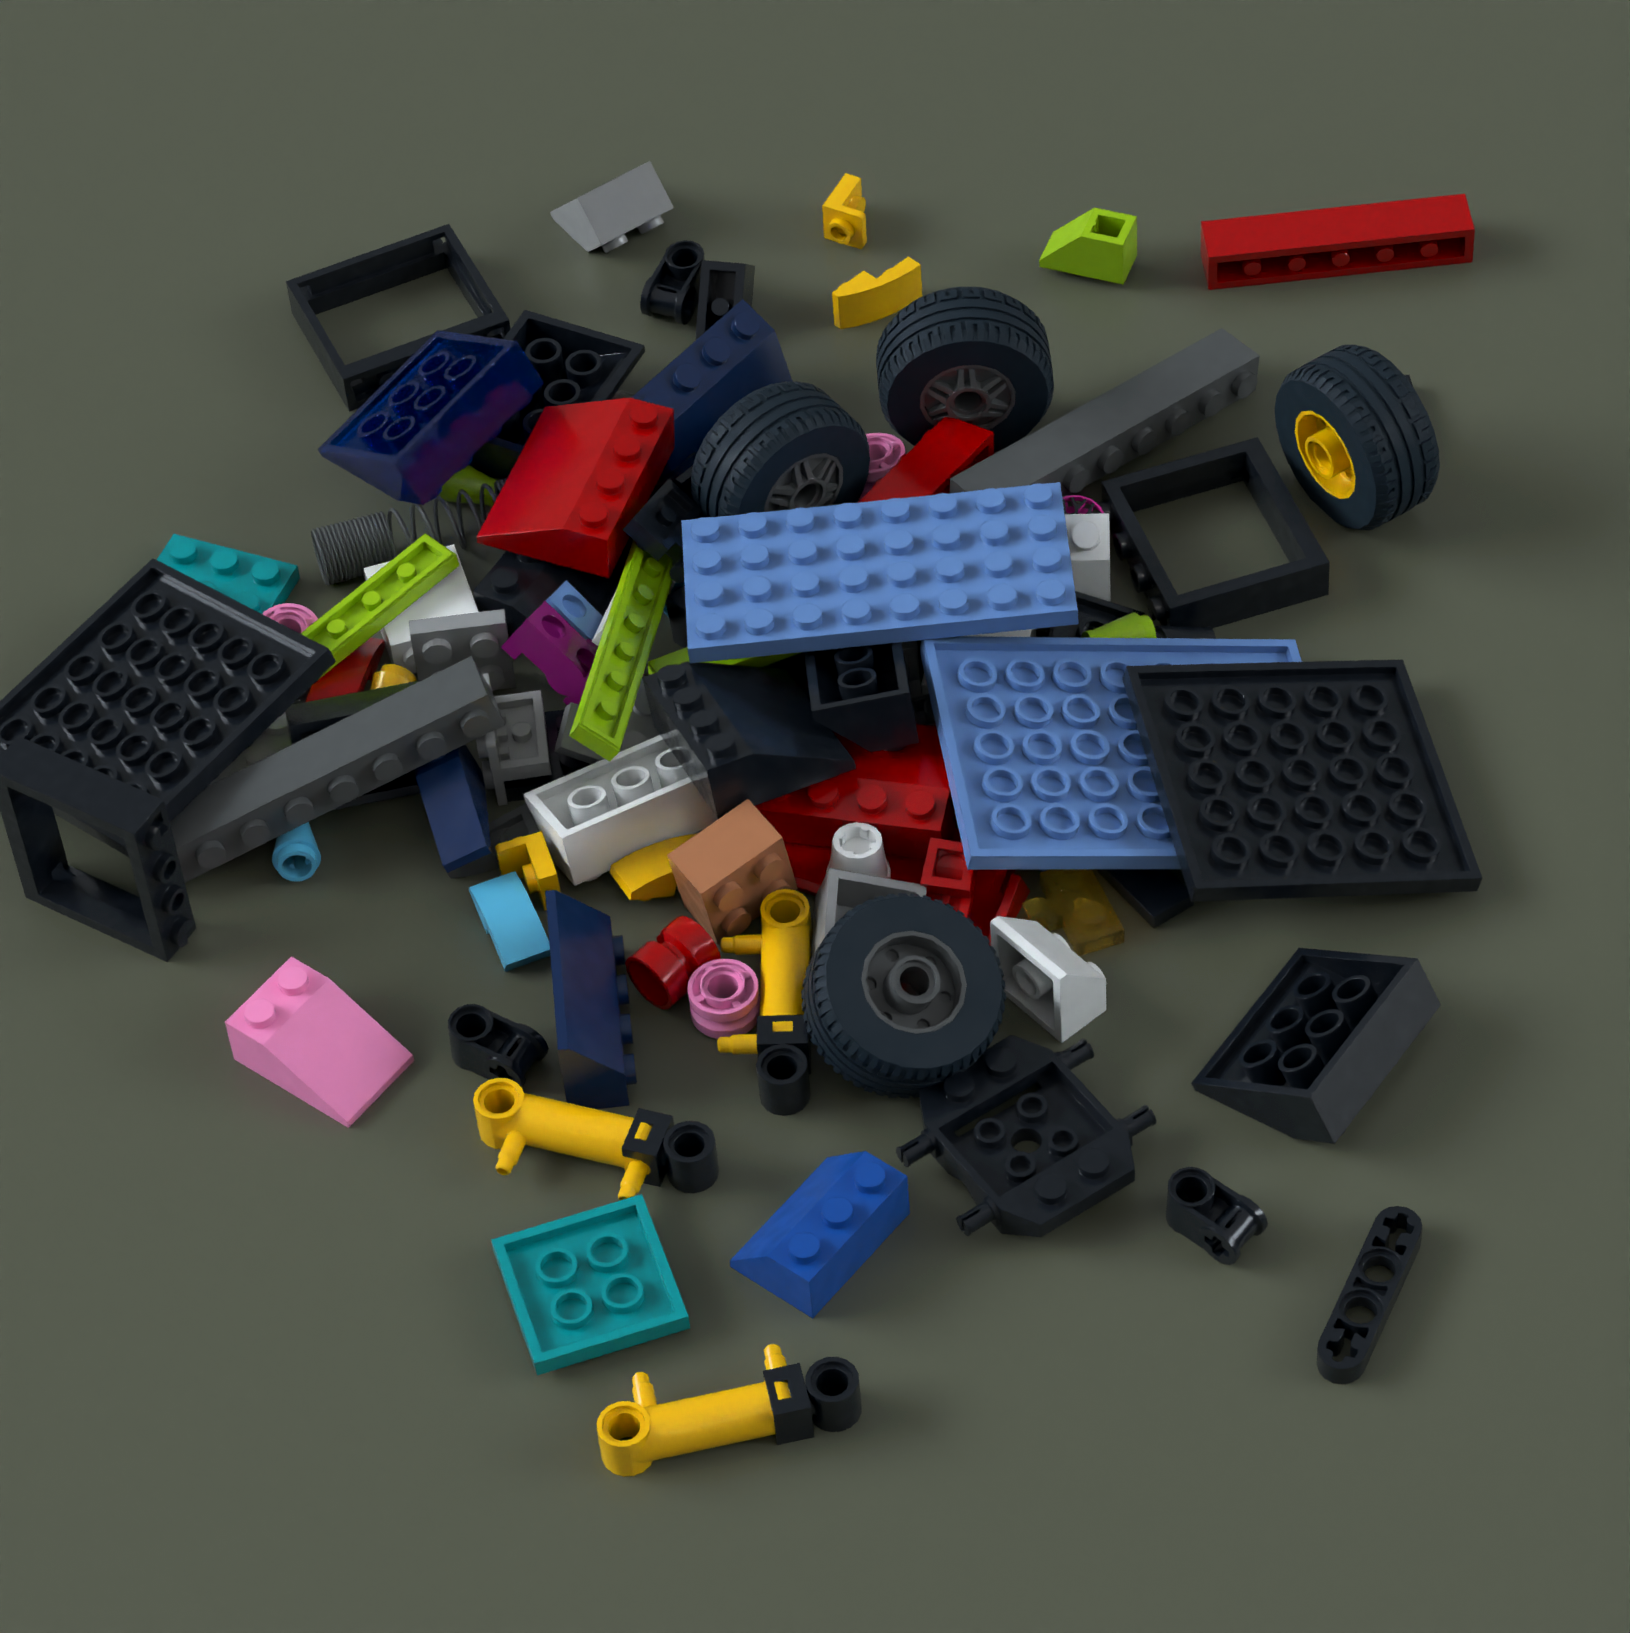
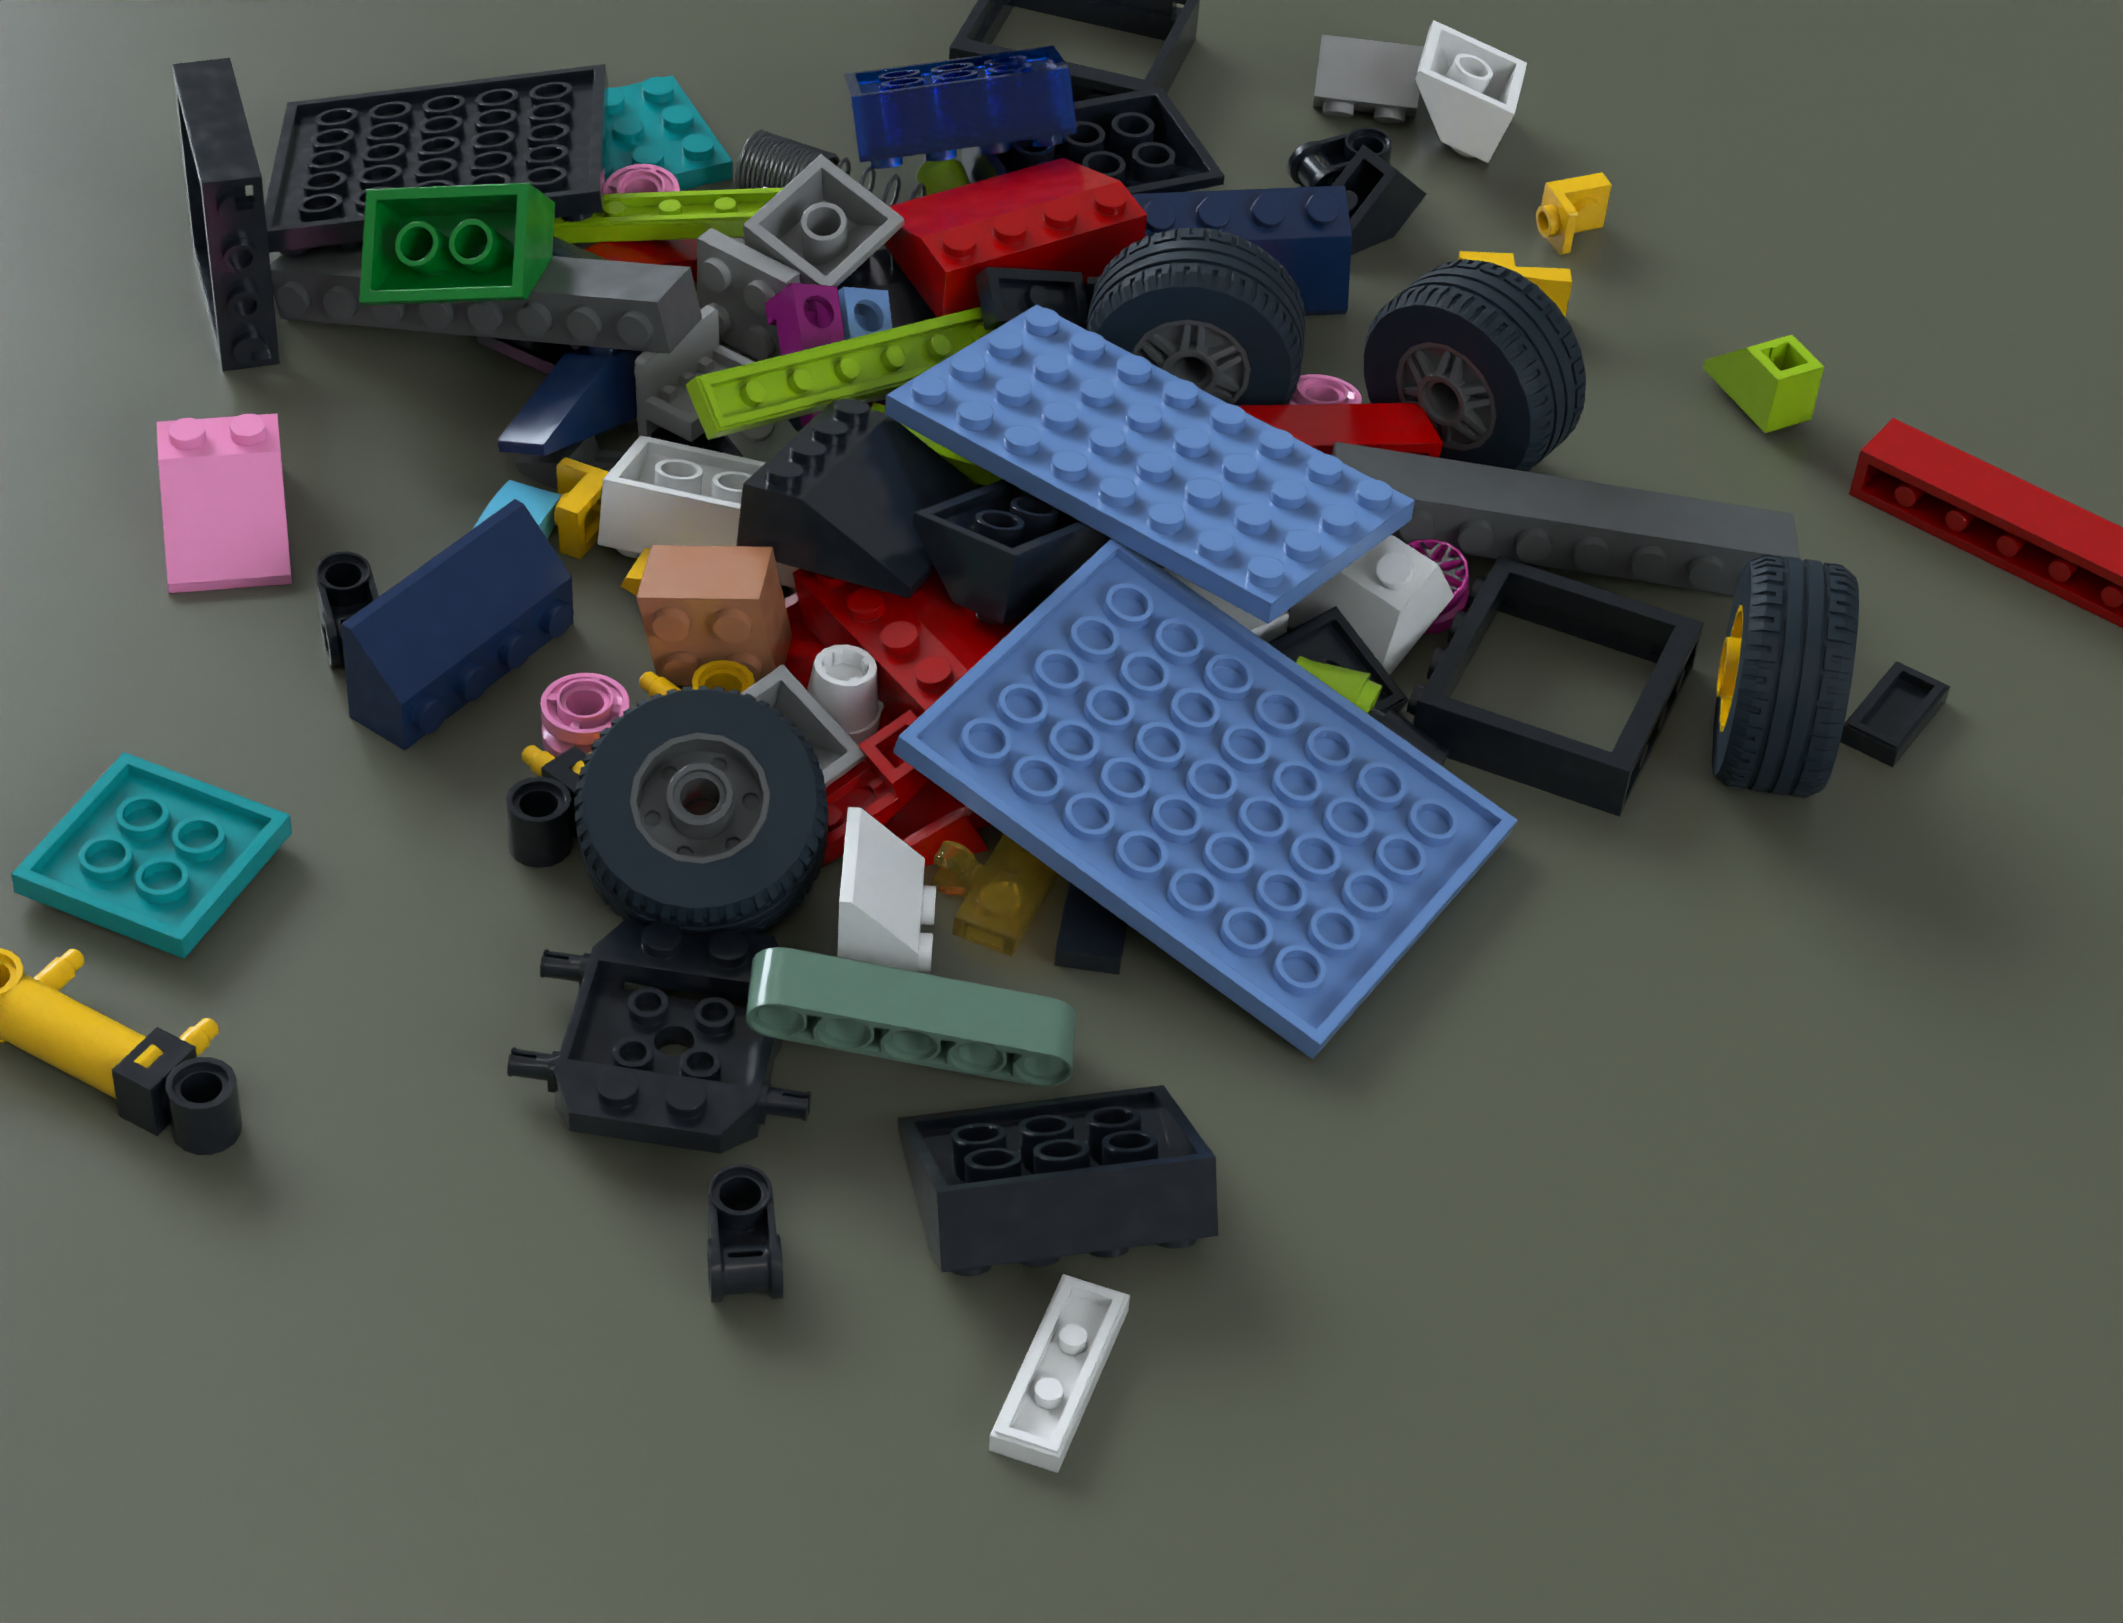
camera: 35 degrees right, 5 degrees down
(294, 758) = (455, 243): none -> green slope
(296, 854) = (423, 357): medium azure cone -> none
(484, 567) = (822, 224): none -> light grey slope
(640, 1145) = (349, 775): yellow piece -> none
(665, 966) = (570, 650): red wheel -> none
(703, 170) = (1468, 90): none -> white slope
(826, 1230) = (396, 978): blue slope -> none
(1146, 1017) = (911, 1017): none -> sand green beam
(1299, 780) = (1335, 930): black plate -> none
(1367, 1293) = (802, 1448): black beam -> none
(1447, 1146) = (1059, 1373): none -> white tile

